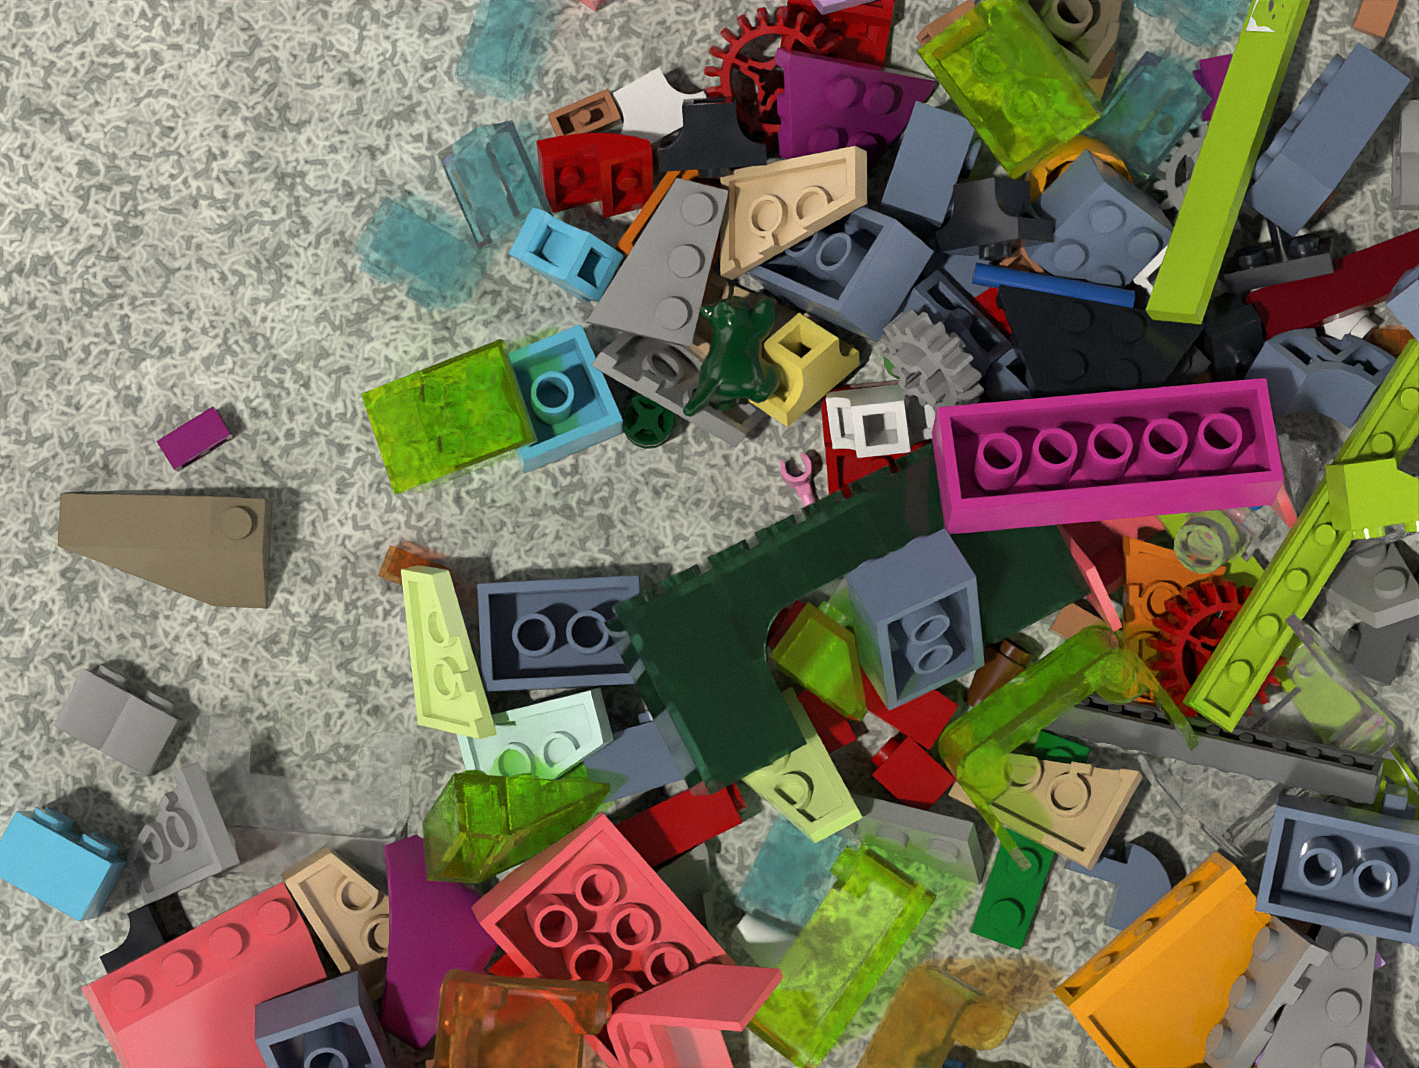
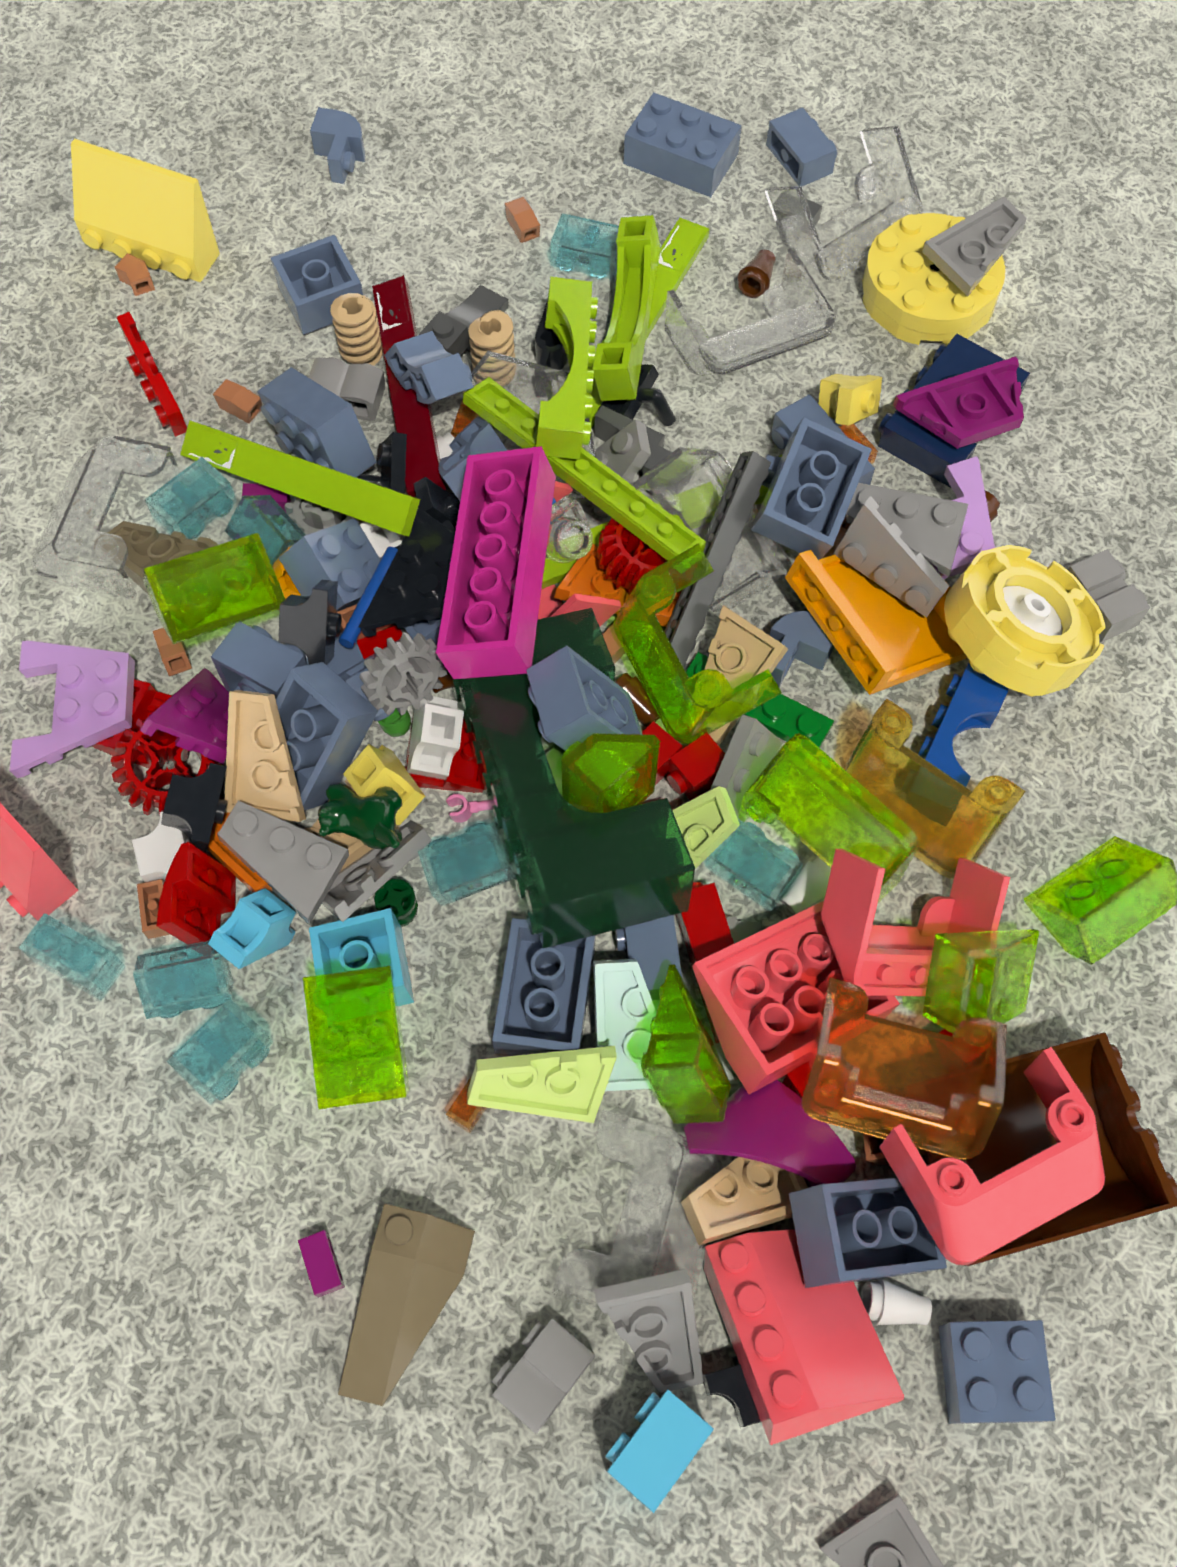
camera: 80 degrees left, 20 degrees down
(712, 495) = (466, 863): none -> clear light blue brick

